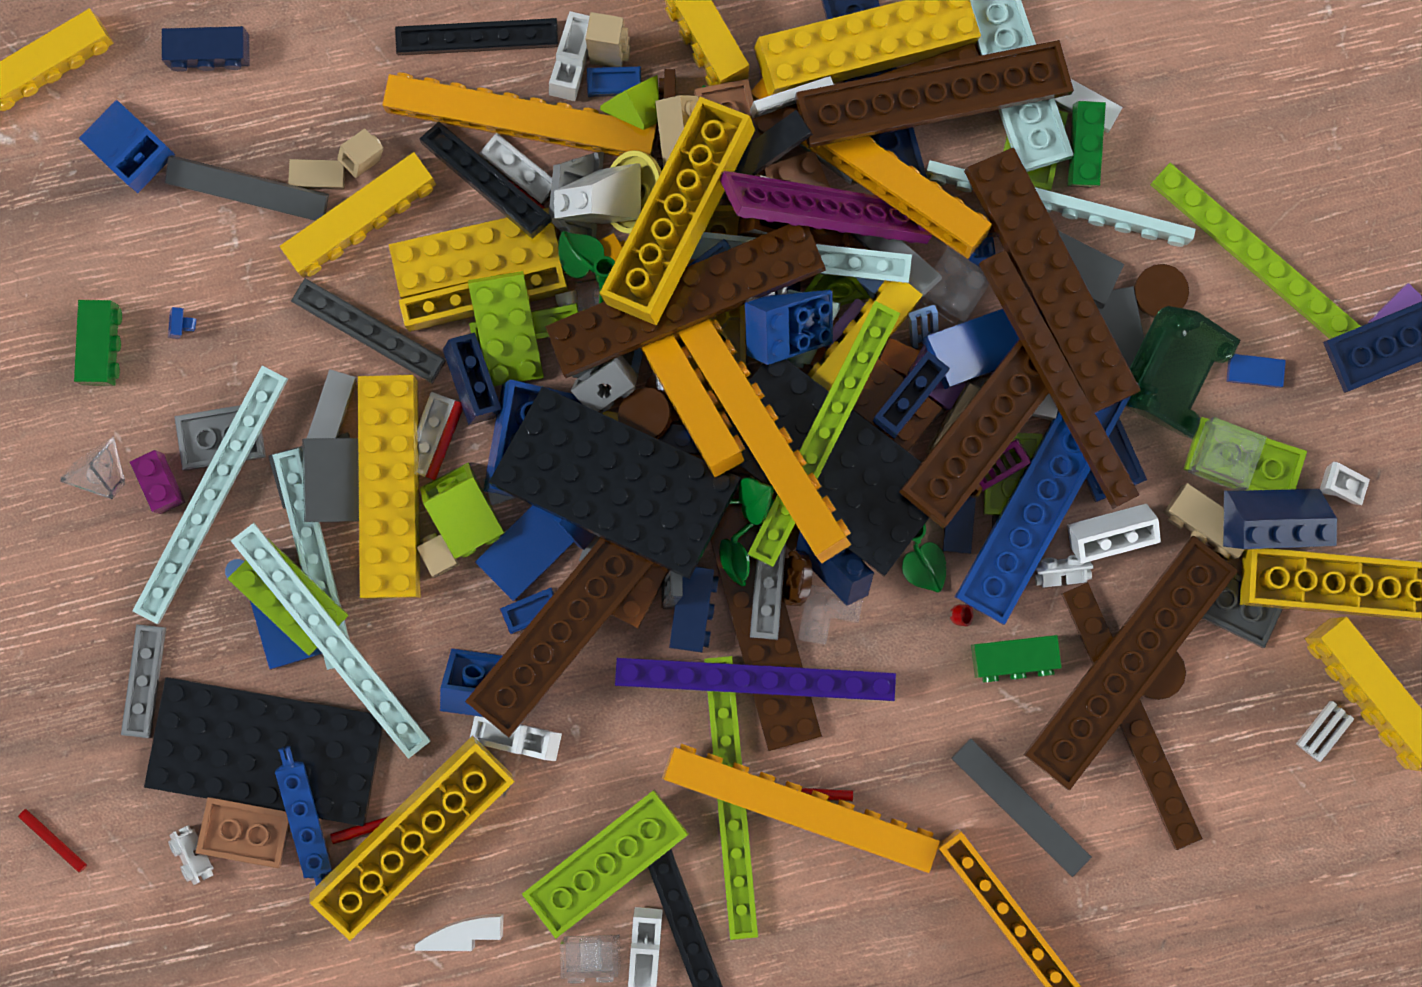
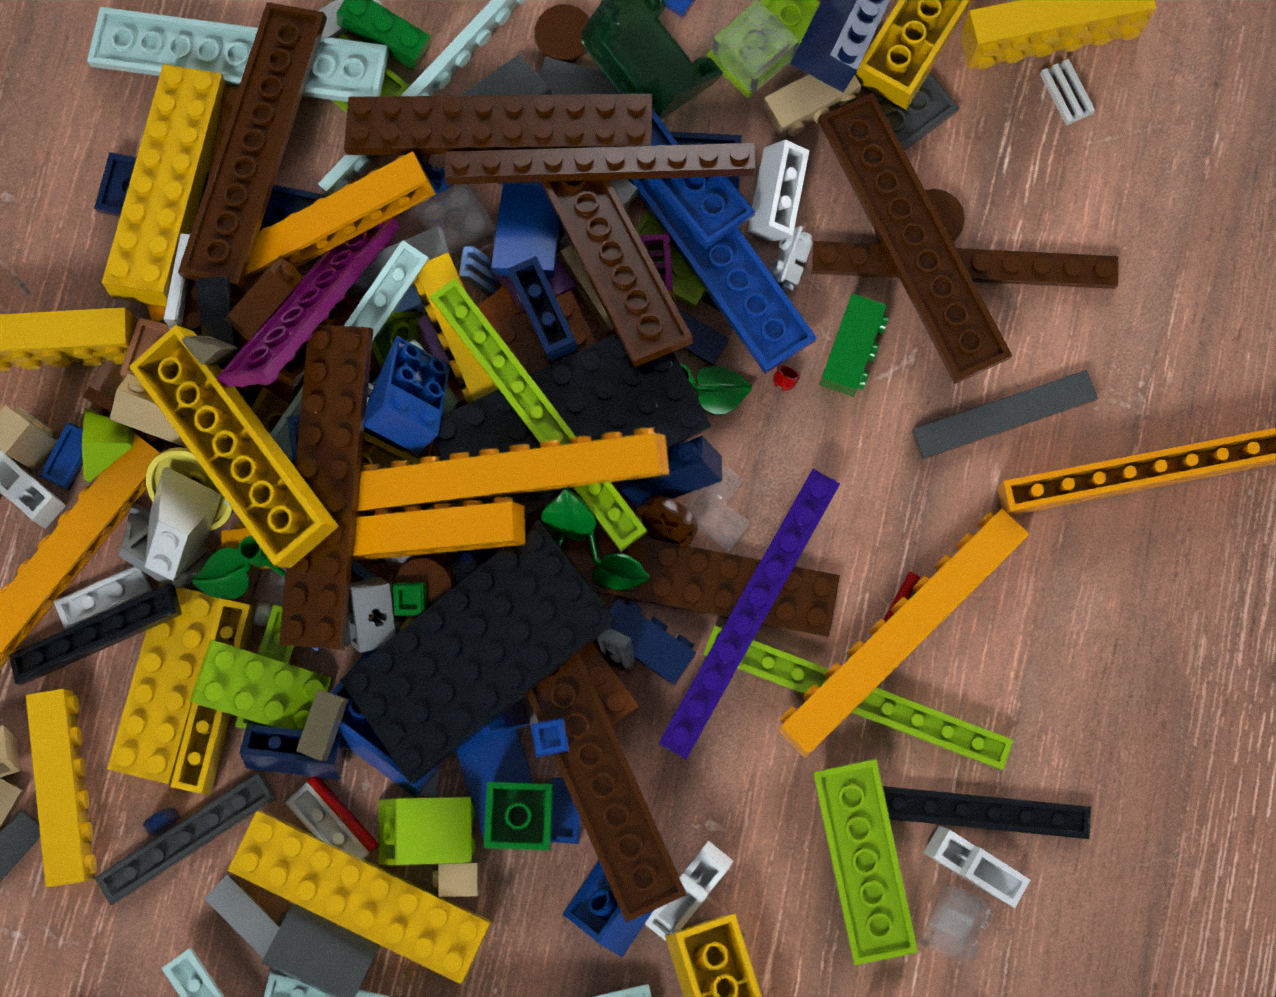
camera: 60 degrees left, 5 degrees down
(371, 305) = (160, 820): none -> dark blue tile
(500, 391) = (322, 725): none -> dark tan slope
(507, 578) = (519, 816): none -> green brick
(576, 572) = (549, 737): none -> blue tile
(631, 408) = (410, 598): none -> green tile
(745, 151) = (209, 350): none -> dark tan slope
(767, 598) = (672, 560): light grey tile -> none
(810, 169) = (263, 298): none -> reddish brown slope
(1069, 482) = (706, 205): none -> blue tile

